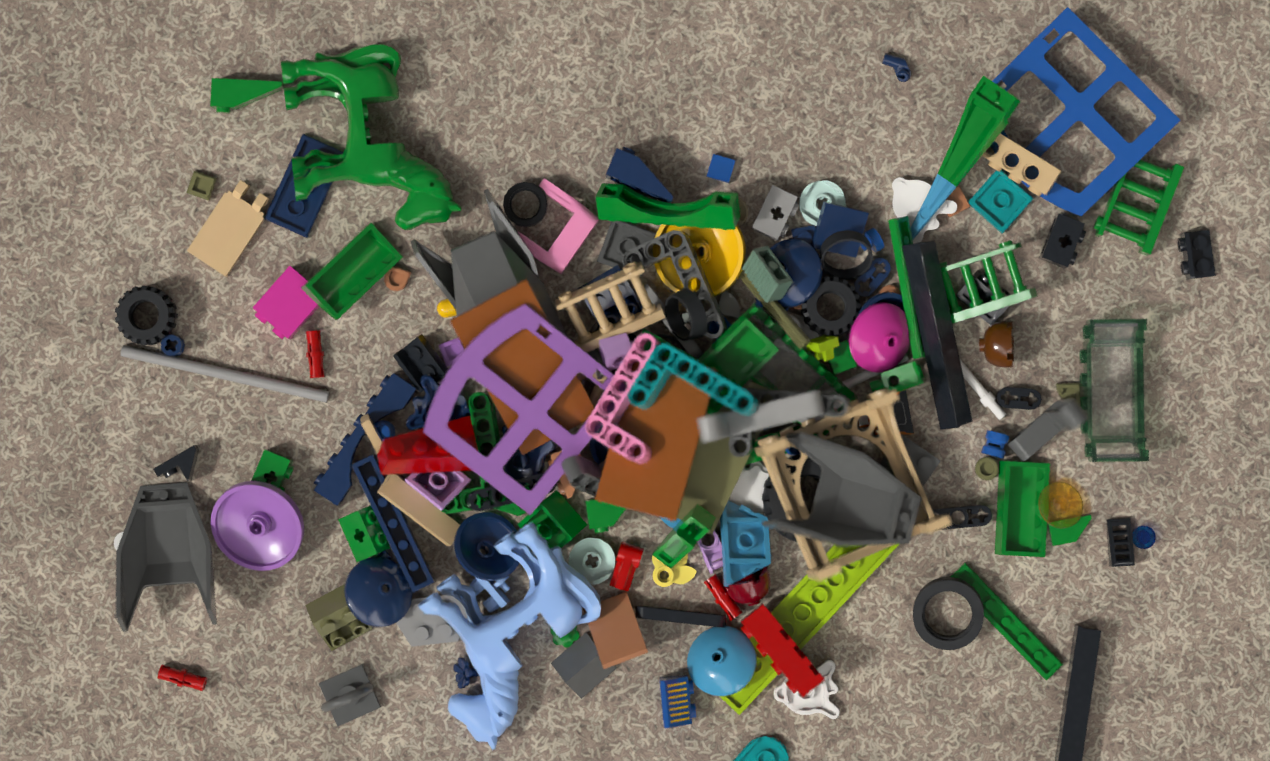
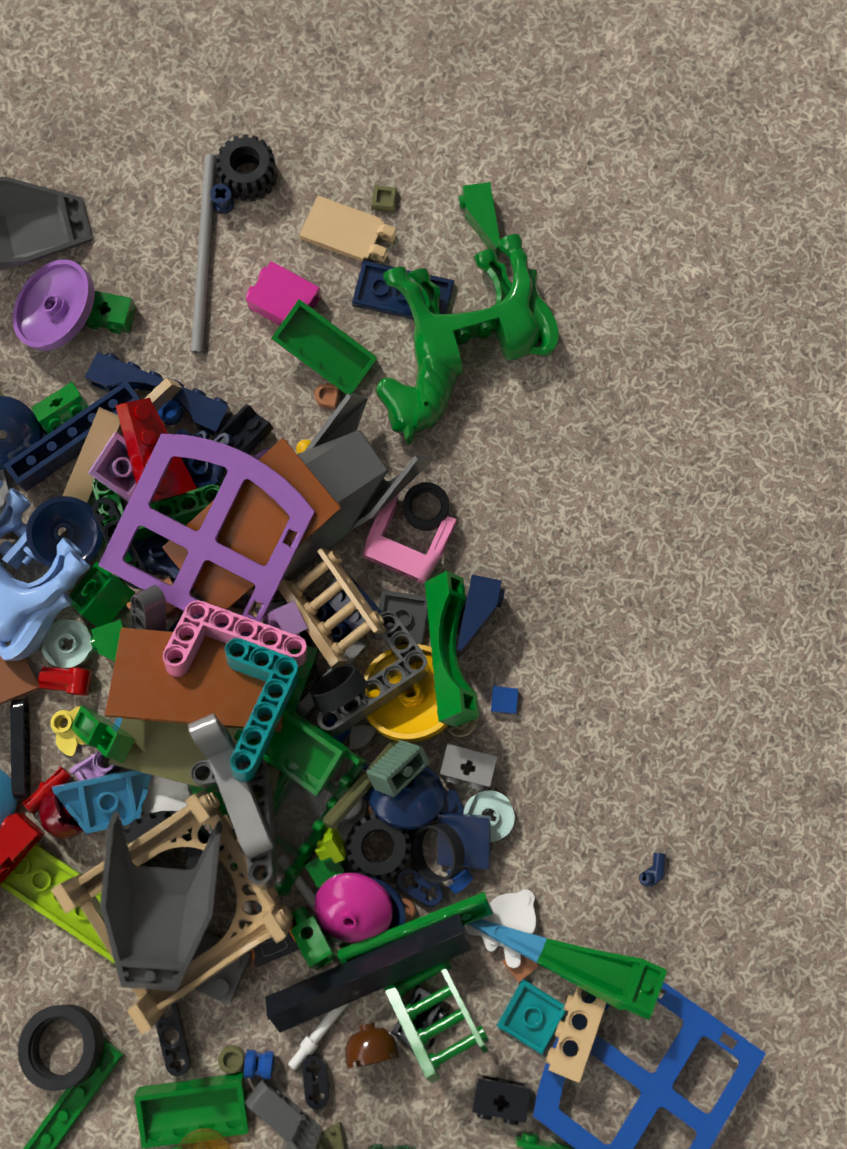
camera: 85 degrees right, 10 degrees down
(185, 461) = (108, 229): black slope -> none
(315, 354) = (237, 332): red pin -> none

